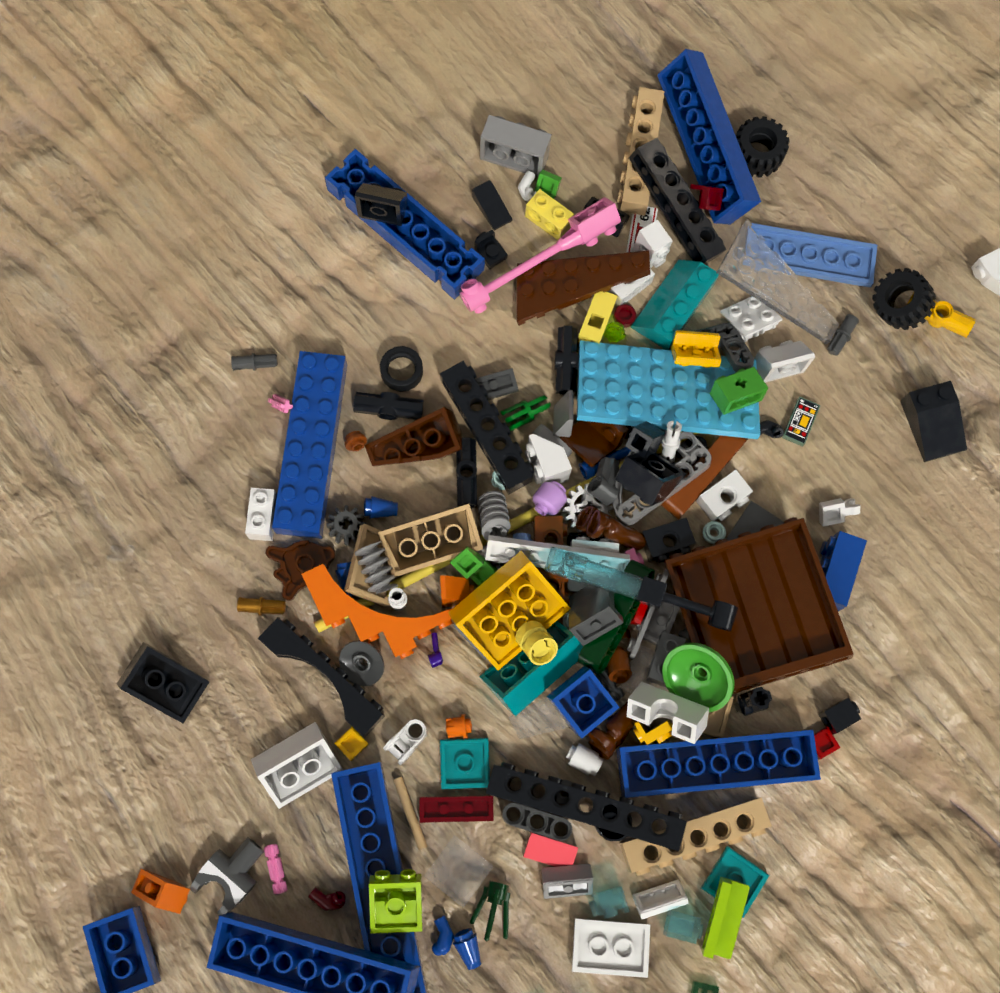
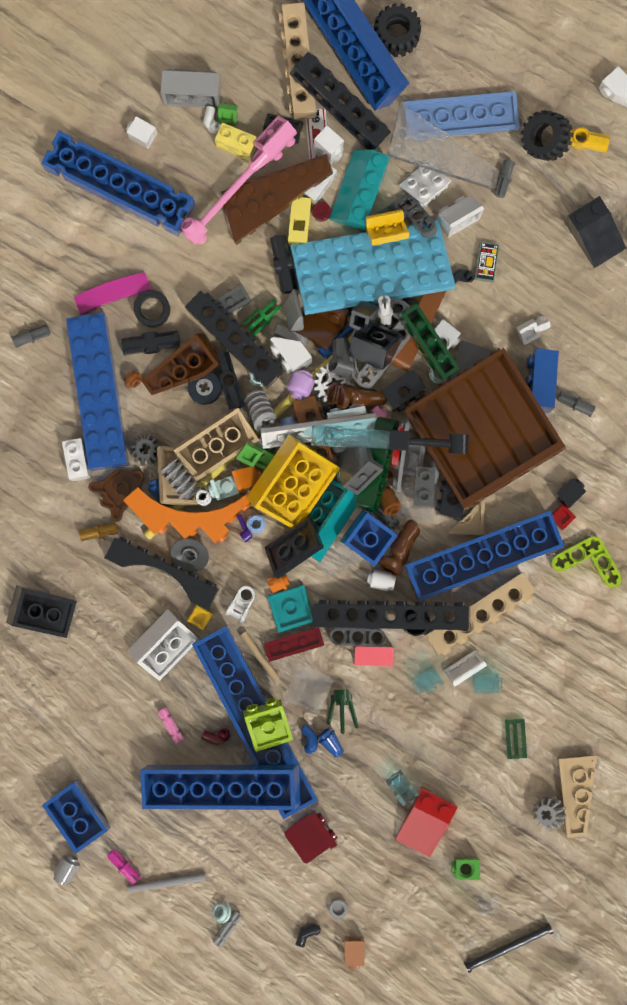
camera: 10 degrees left, 10 degrees up
(160, 891) = (90, 765): orange slope -> none
(230, 873) = (138, 737): dark grey connector -> none
(280, 403) = (63, 365): bright pink axle -> none
(360, 338) = (111, 292): none -> dark pink slope
(379, 508) = (168, 428): blue cone -> none
(381, 203) = (95, 175): black slope -> none
(424, 596) = (223, 488): none -> light aqua bracket
(436, 485) = (207, 397): none -> black bush
(446, 178) = (141, 132): none -> white brick
(451, 641) = (251, 519): none -> light blue plate
(489, 688) = (293, 547): none -> black tile
(490, 249) = (195, 185): black bracket -> none
(491, 205) = (185, 145): black slope -> none
(536, 642) = (320, 502): light yellow wheel -> none
(567, 881) = (392, 674): light grey slope -> none
(611, 947) = (437, 713): white plate -> none
(615, 332) = (317, 228): clear neon green plate -> none
(651, 703) = (421, 524): white arch -> none
(660, 733) = (433, 546): yellow bracket -> none
(686, 678) = (451, 497): bright green dish -> none
(710, 197) = (365, 89): dark red panel -> none
(714, 488) = (428, 341): none -> dark green brick
(725, 918) = (517, 668): lime panel -> none
(737, 868) = (518, 639): teal tile -> none
(738, 390) = (428, 253): bright green brick -> none
(753, 701) = (499, 501): black piece -> none
(852, 801) = (594, 556): none -> lime beam
(870, 611) = (576, 403): none -> dark grey axle

